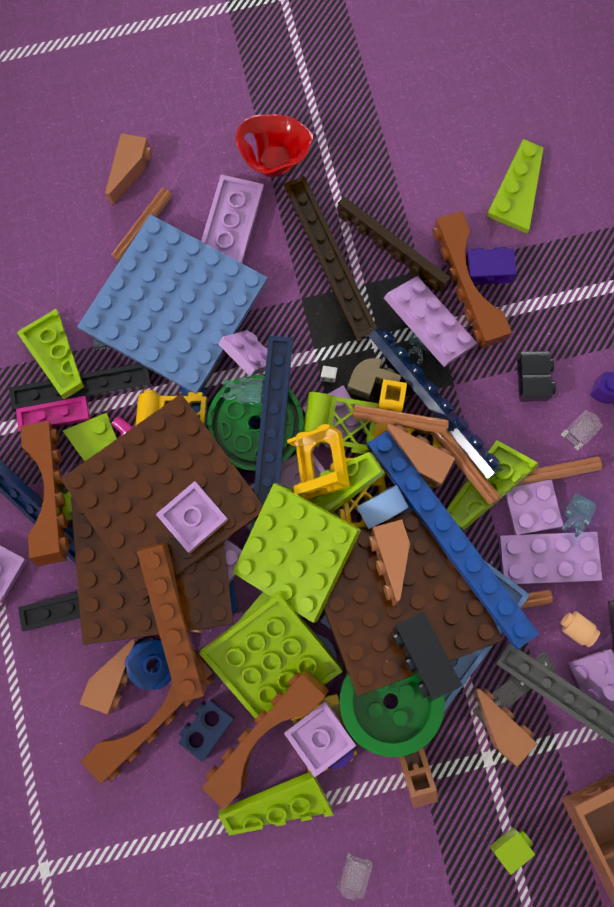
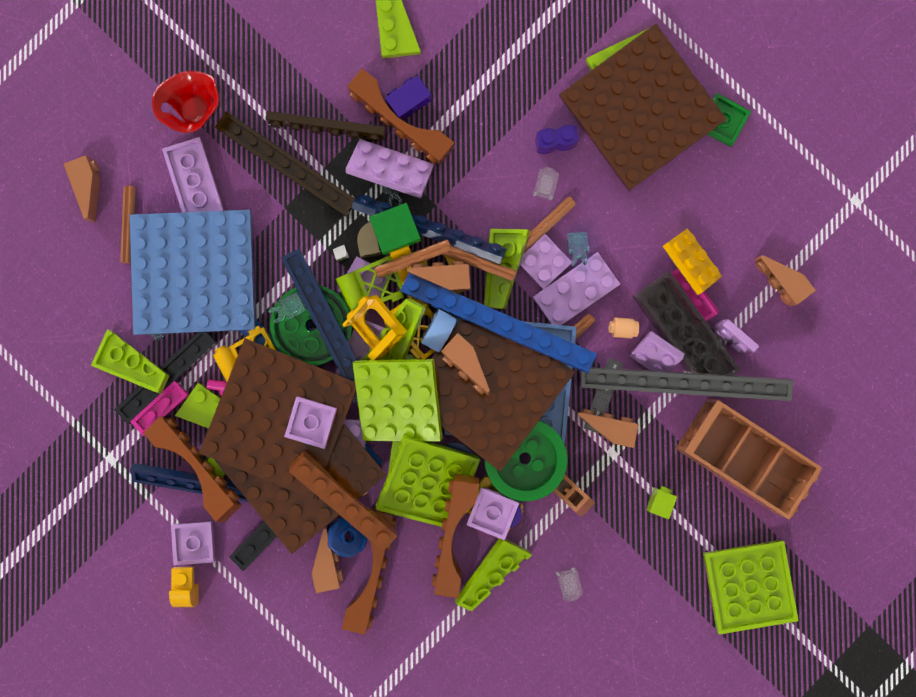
camera: 35 degrees left, 10 degrees up
(210, 732) = (417, 554): dark blue brick -> none
(245, 351) = (270, 276): lavender plate -> none
(400, 378) = (394, 229): none -> green tile
(425, 657) = (529, 418): black brick -> none
(535, 376) = (490, 164): black brick -> none

